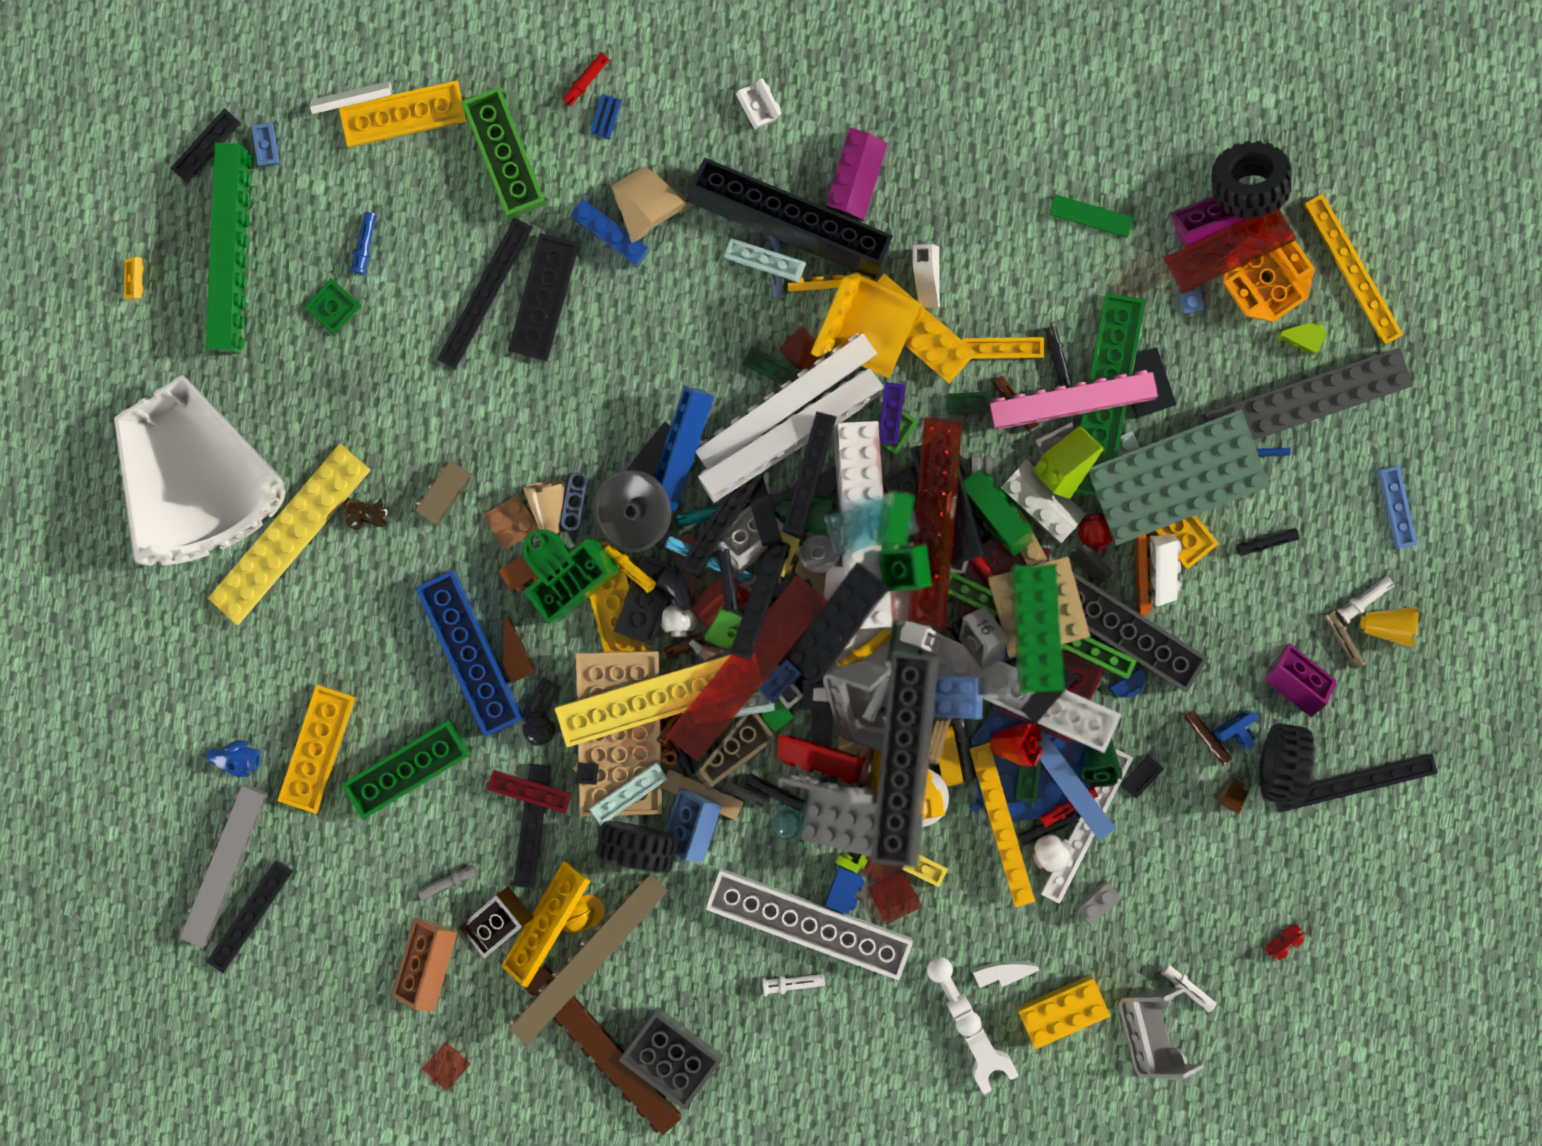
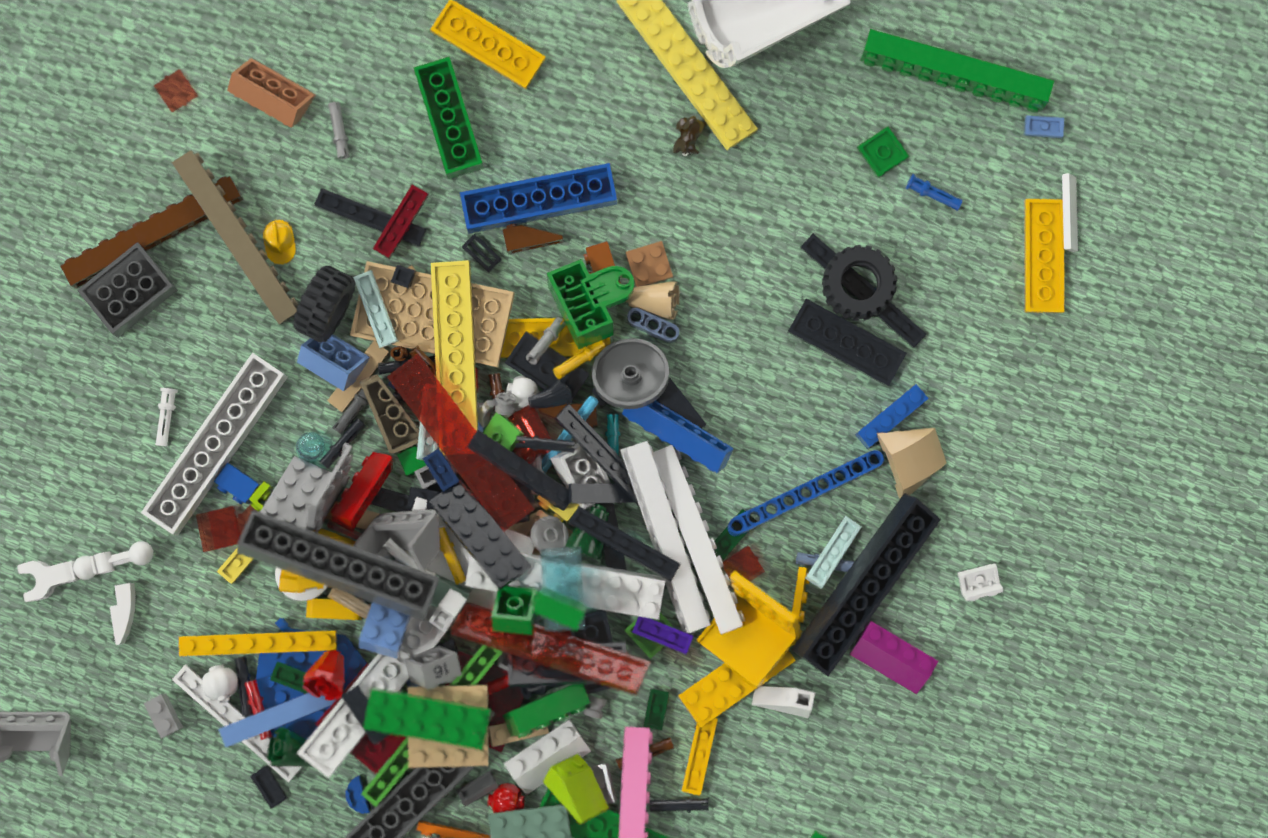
camera: 100 degrees right, 5 degrees down
(204, 146) = (1053, 70): black plate -> none
(443, 492) = (690, 210): dark tan brick -> none
(464, 274) = (877, 265): none -> black tyre
(496, 922) = (291, 164): dark brown slope -> none
(504, 153) = (987, 337): bright green brick -> none
(538, 728) = (455, 243): black hair -> none
(546, 925) = (278, 207): yellow plate -> none
(579, 86) = (1037, 426): red pin -> none
(599, 110) = (1014, 447): blue tile -> none
(611, 604) = (550, 335): none -> light grey pin
(694, 633) = (505, 404): none -> light grey wheel
(703, 296) = (815, 492): none -> blue beam
(962, 740) = (341, 626): dark grey pin -> none
(1063, 1011) = (72, 657): yellow brick -> none
(1206, 1002) = (69, 775): white pin -> none

